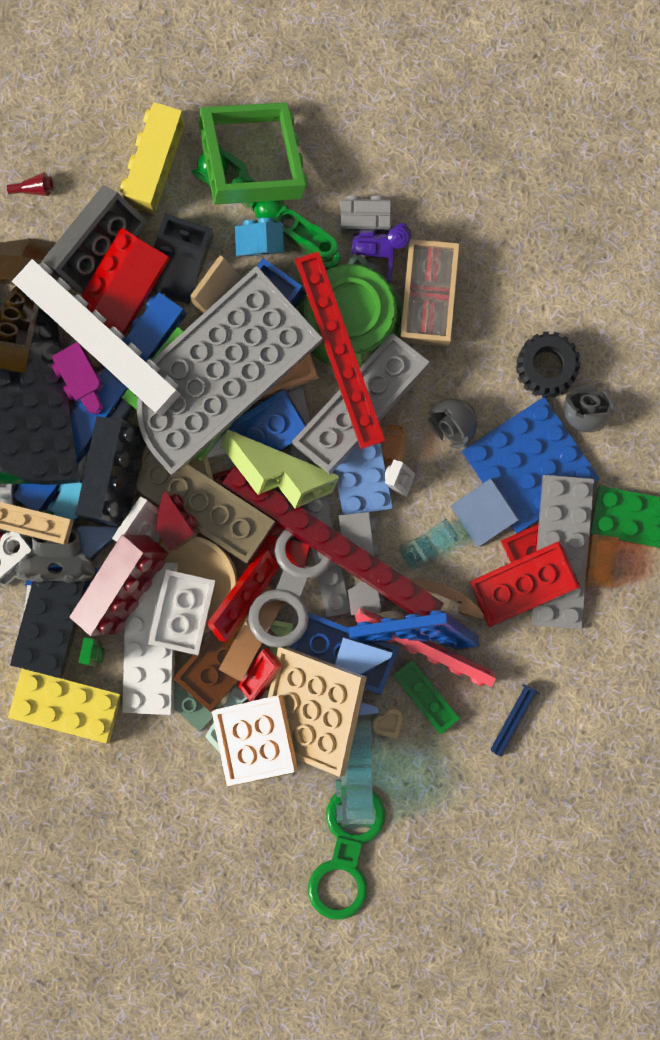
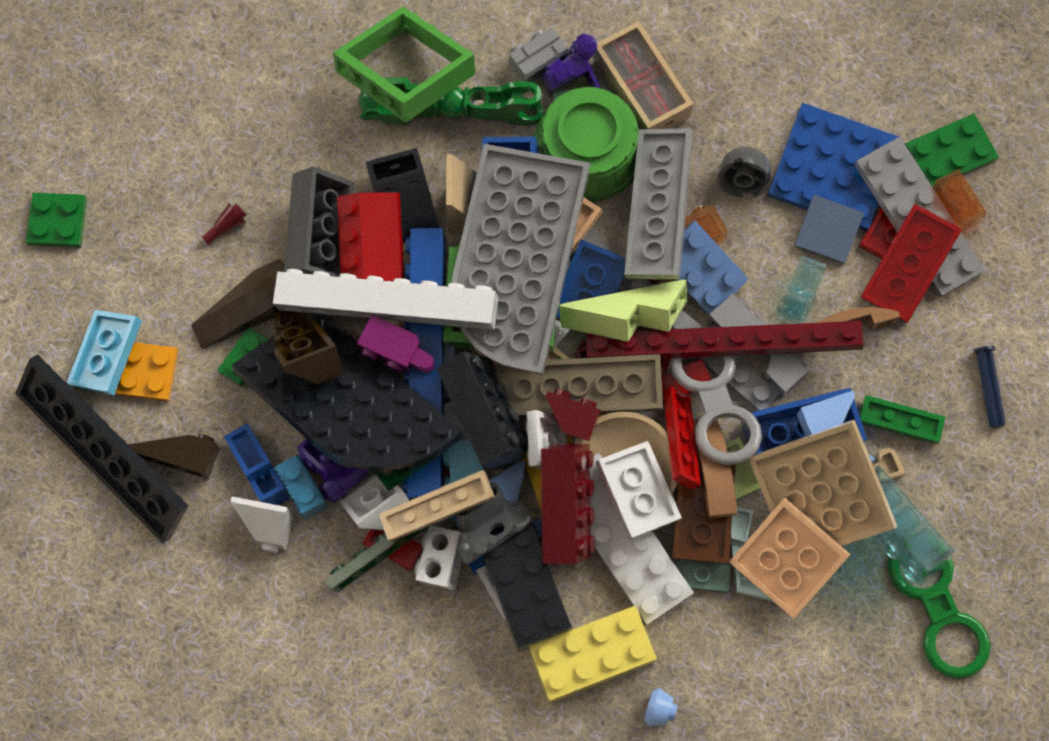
camera: 40 degrees left, 10 degrees down
(85, 779) = (660, 708): none -> light blue cone
(91, 652) = (584, 583): green plate -> none
(153, 157) = (318, 122): light yellow brick -> none
(259, 238) = (463, 129): dark azure brick -> none
(260, 675) = (749, 497): red tile -> none
(340, 350) = (611, 166): red plate -> none
(399, 477) = (735, 247): white plate -> none
(436, 626) = (877, 342): blue plate -> none
(437, 654) = (859, 377): coral plate -> none
(548, 343) = (791, 54): black tyre -> none
(588, 409) = (849, 86): dark grey cylinder -> none

